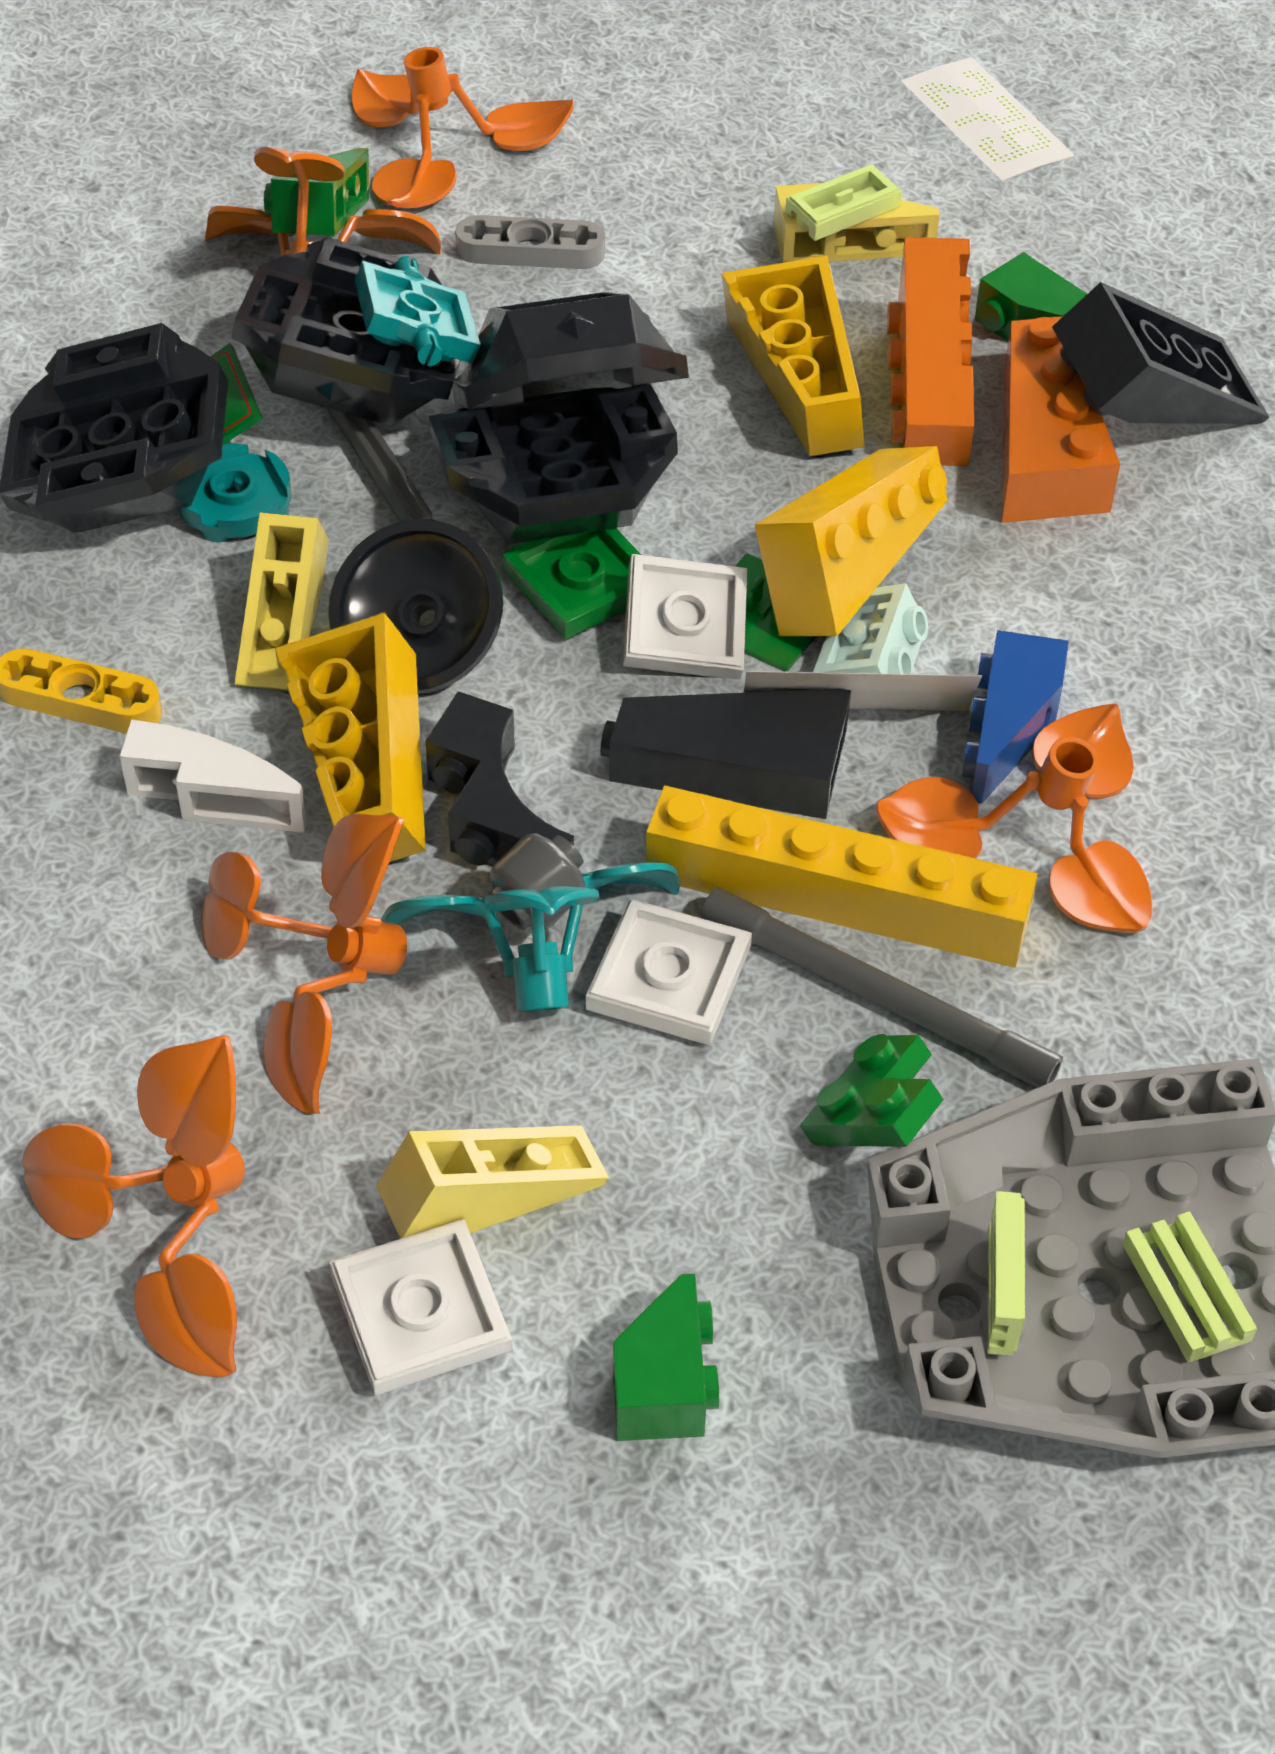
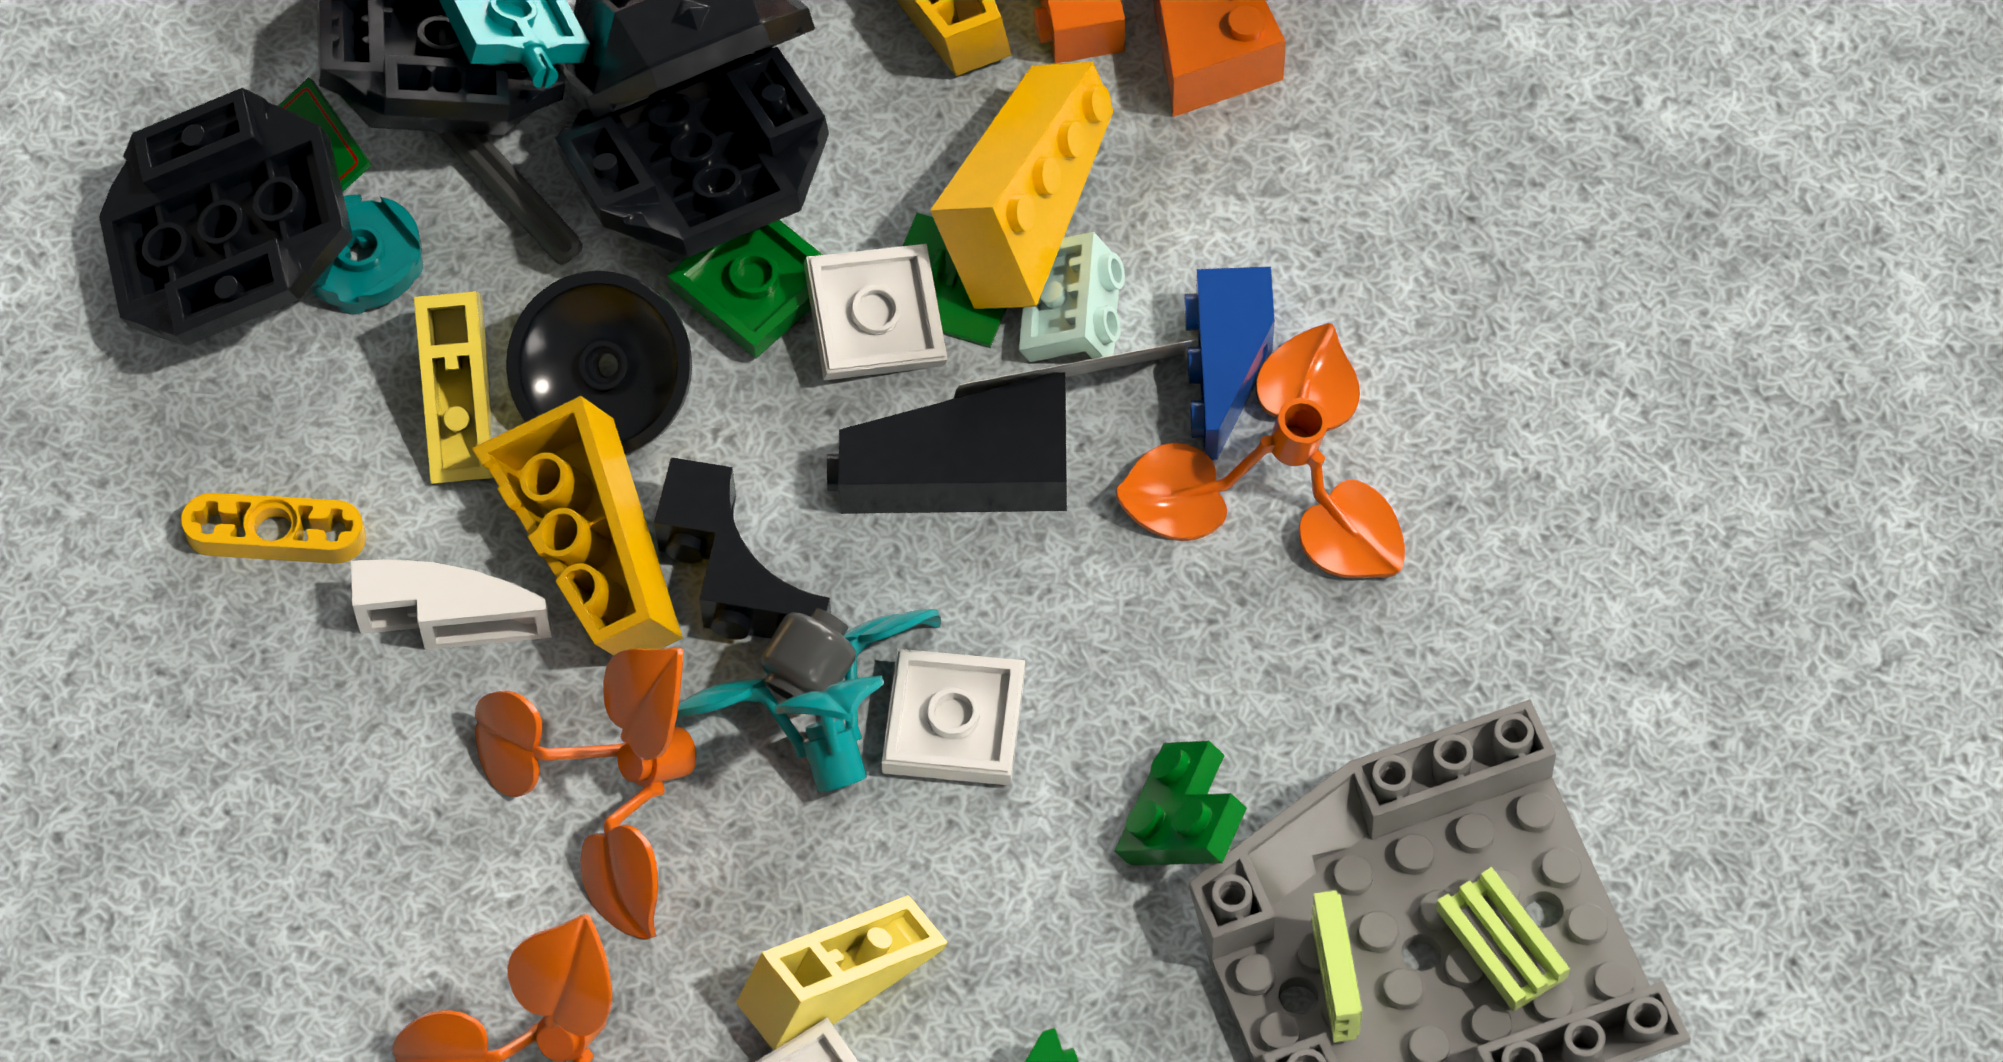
camera: 10 degrees left, 10 degrees up
(843, 875) = (1096, 580): yellow brick -> none
(1000, 1047) = (1287, 728): dark grey piece -> none

